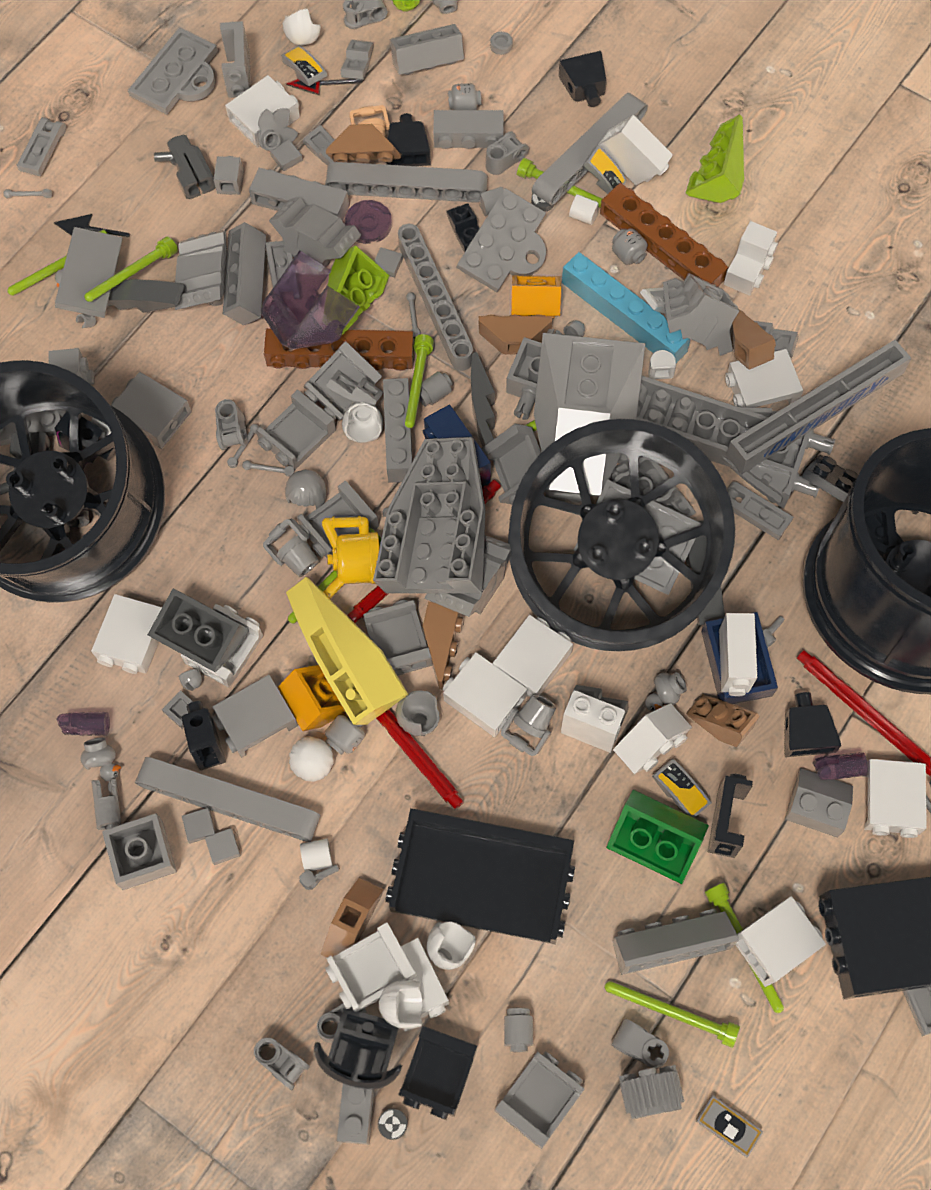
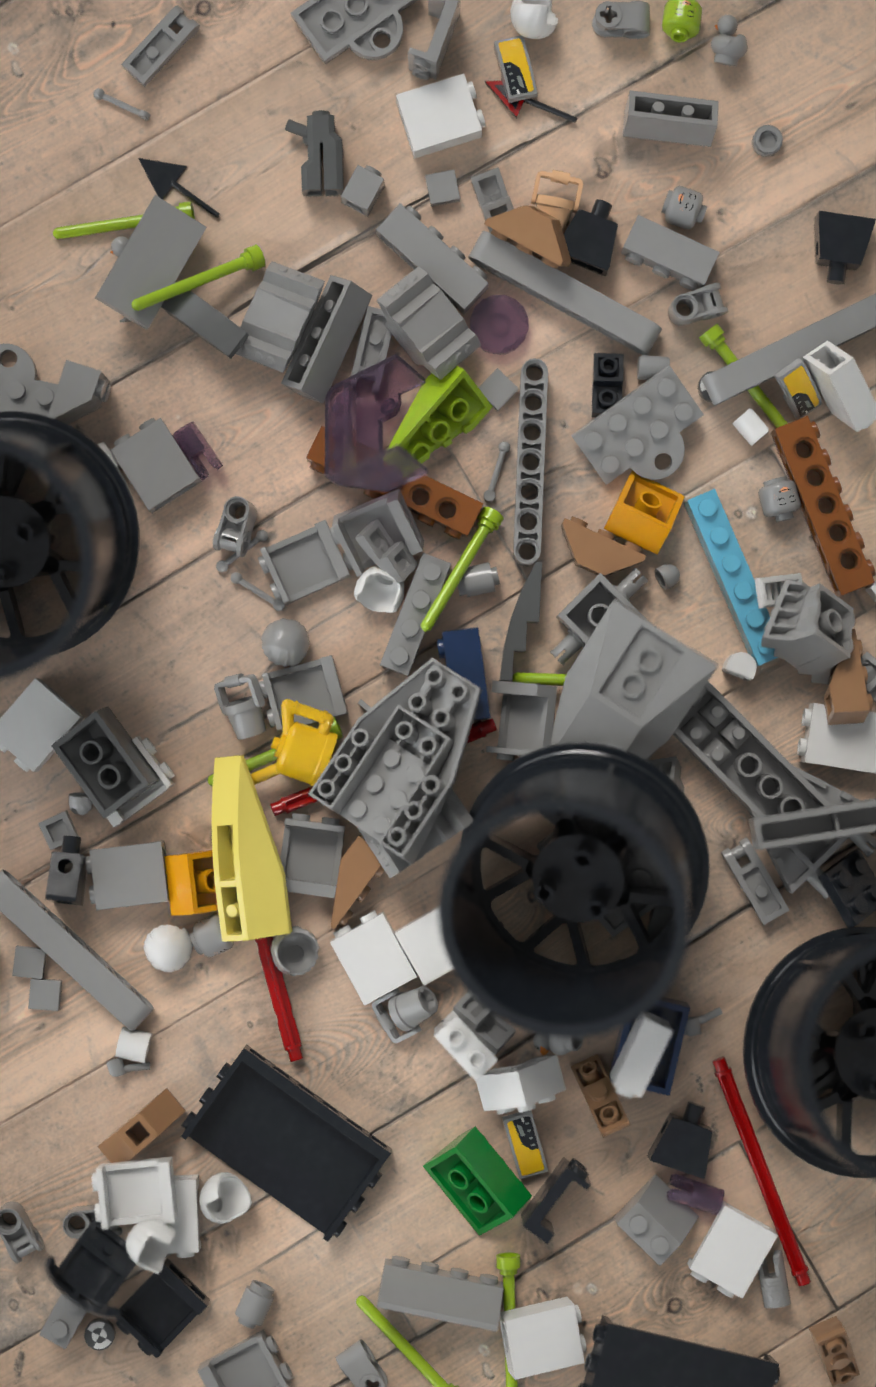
camera: 20 degrees right, 20 degrees up
(177, 384) = (193, 445): none -> clear purple hinge
(276, 127) = (441, 155): light grey plate -> none
(357, 59) = (583, 87): light grey slope -> none

